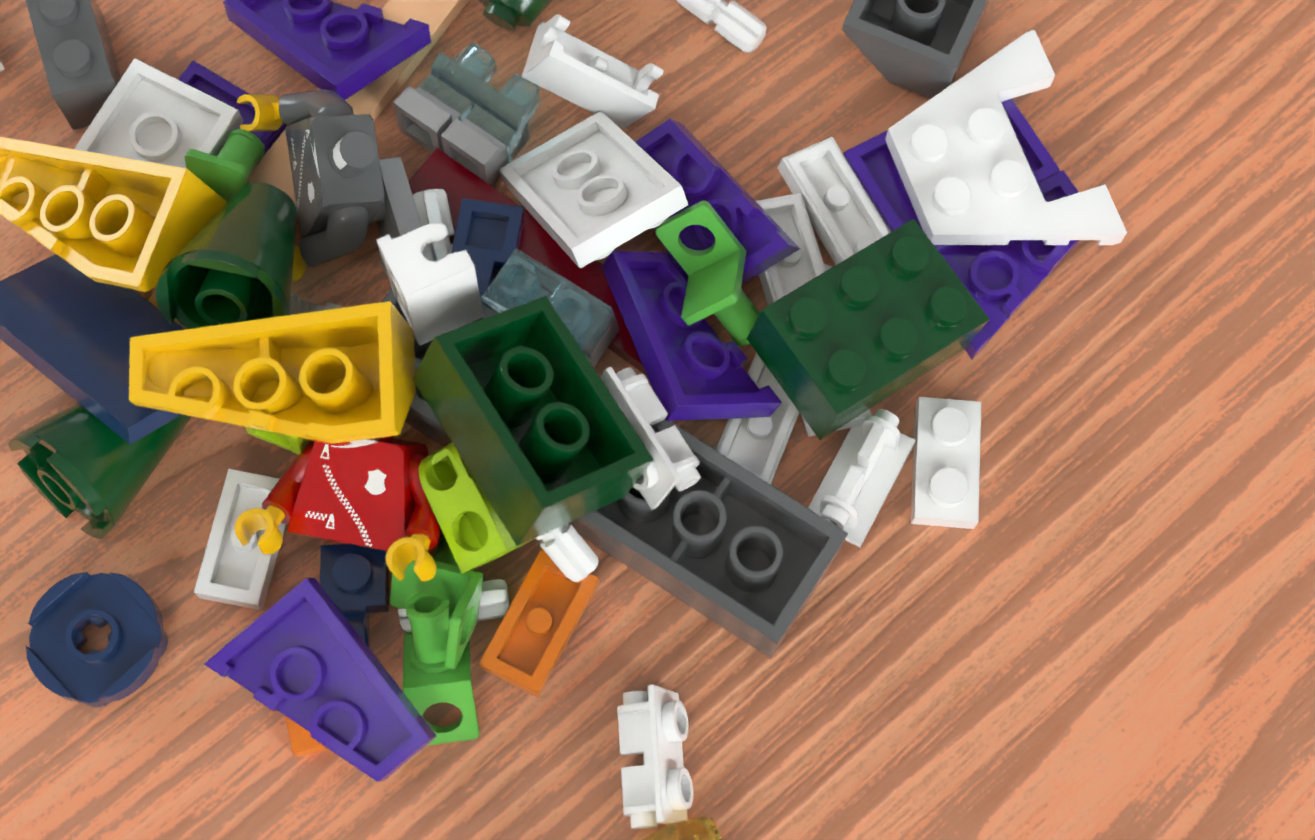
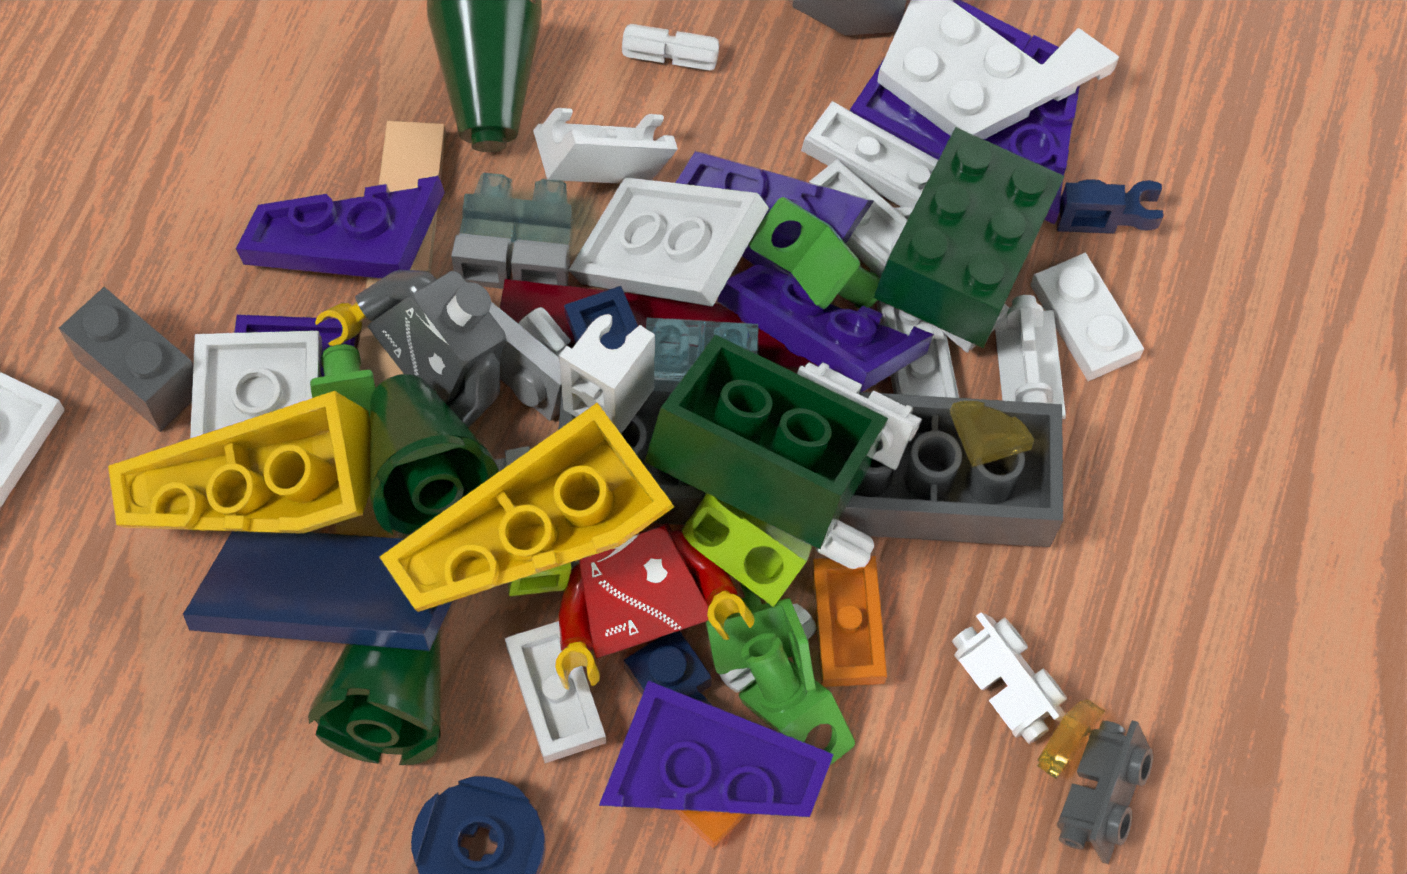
camera: 30 degrees left, 5 degrees down
(759, 523) = (988, 432): none -> clear yellow tile
(1024, 368) = (1101, 207): none -> dark blue plate

